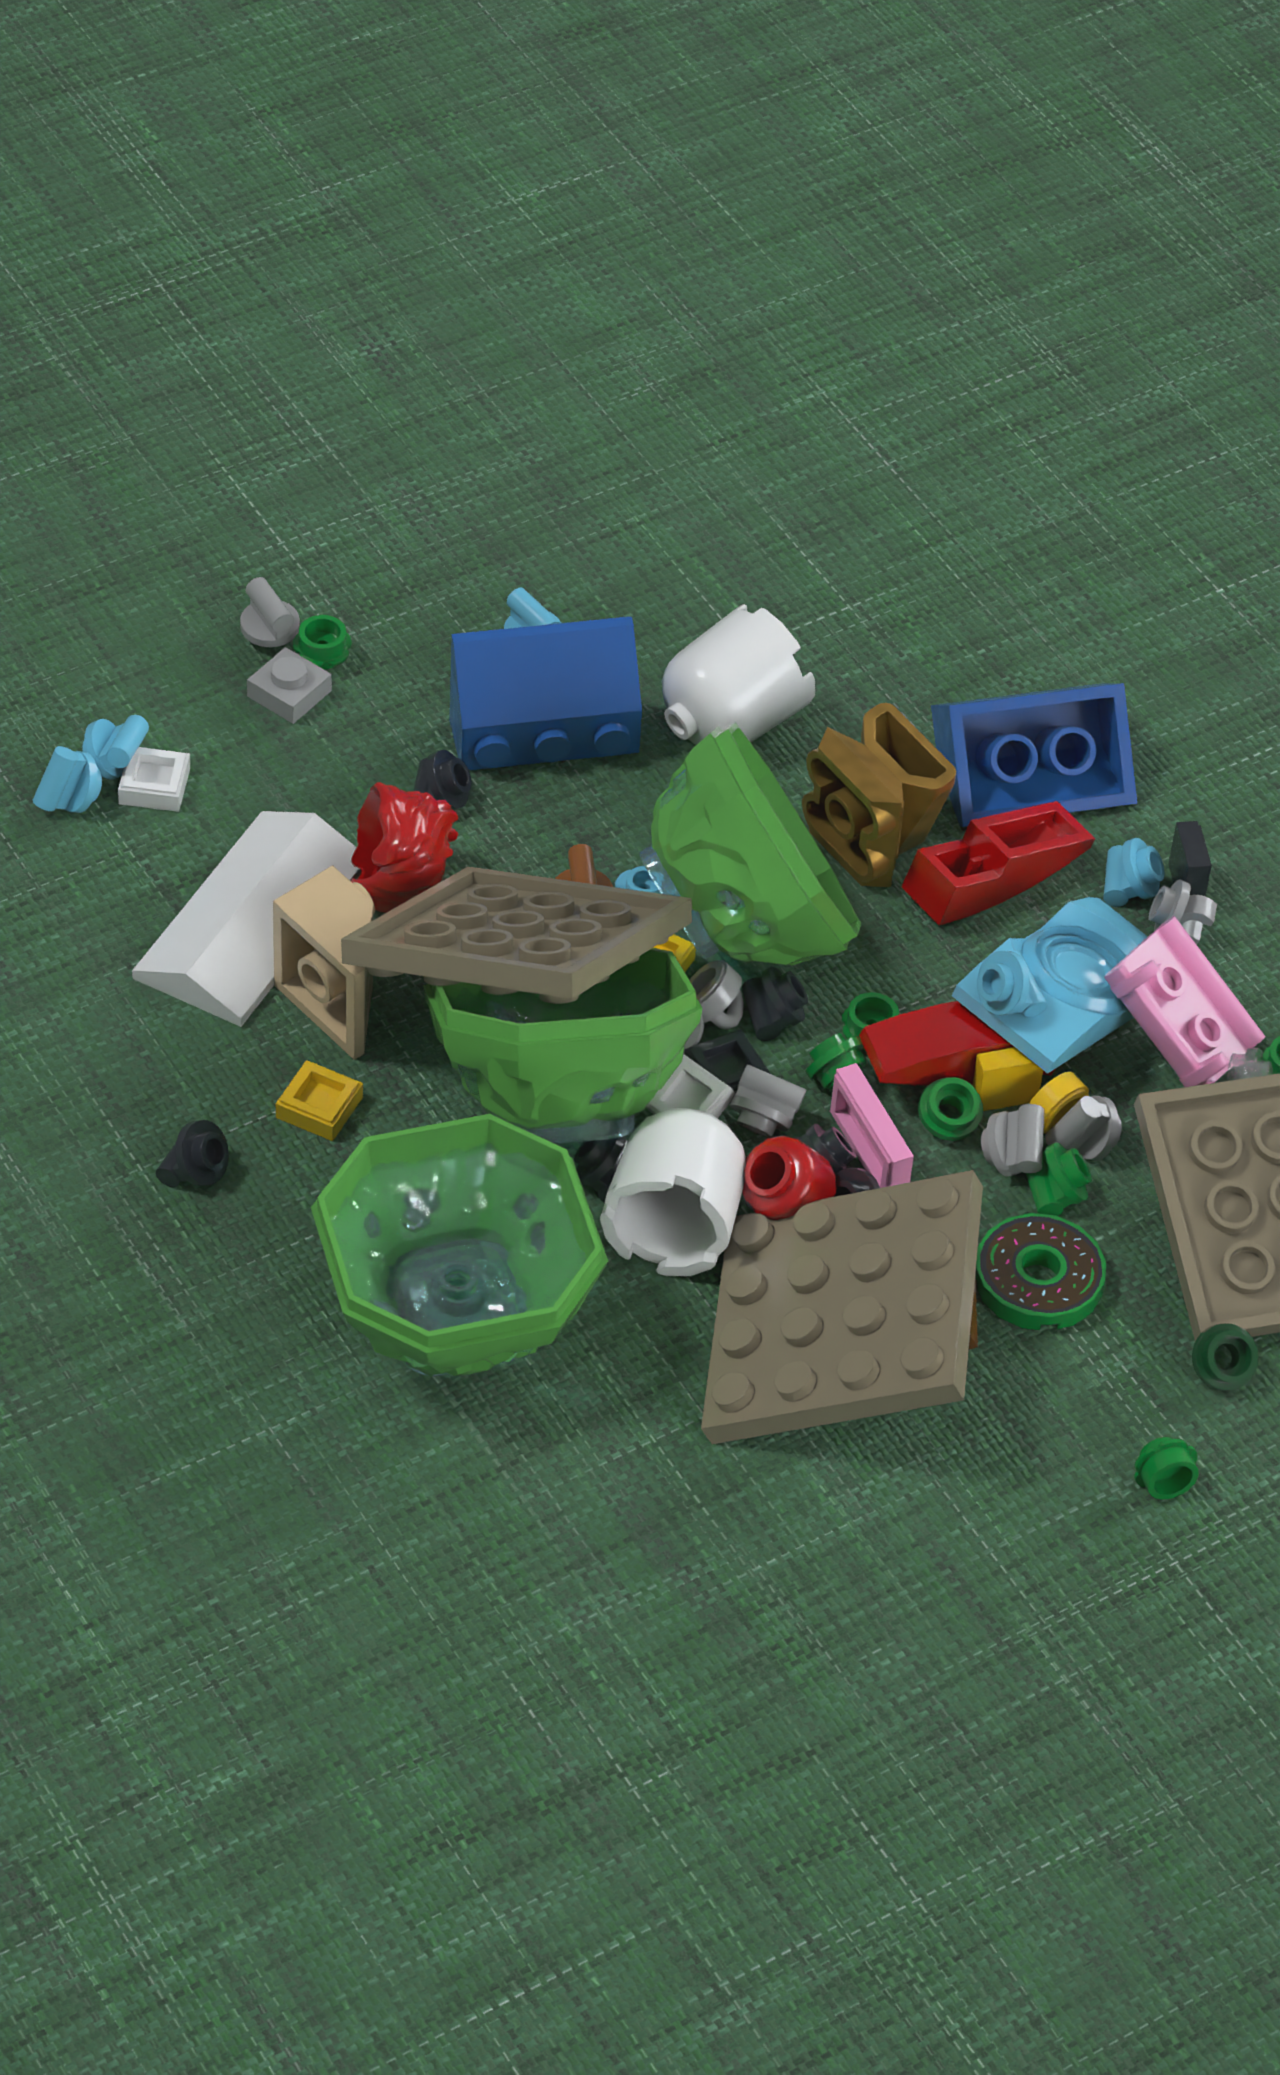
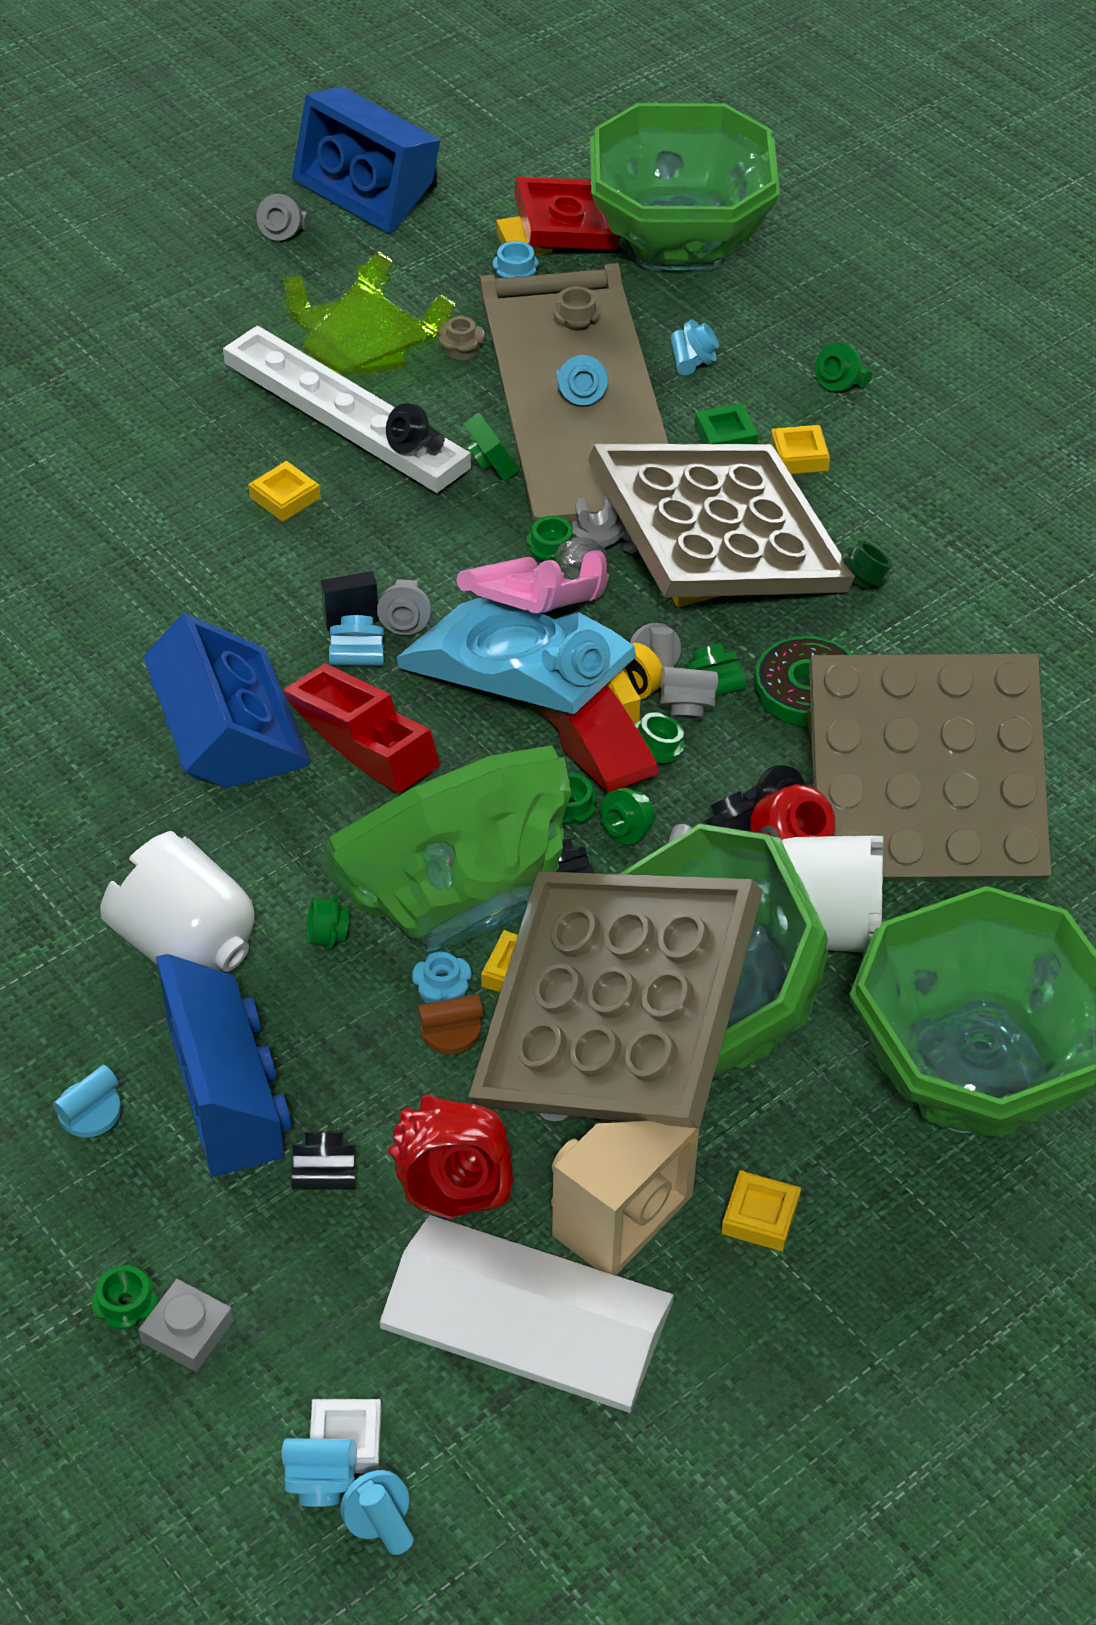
camera: 95 degrees left, 0 degrees up
(196, 1157) = (867, 1302): black plate -> none
(267, 618) = (94, 1354): light grey plate -> none
(869, 1128) = (704, 782): bright pink tile -> none
(875, 794) = (324, 777): pearl gold piece -> none
(1166, 1467) = (981, 595): green plate -> none

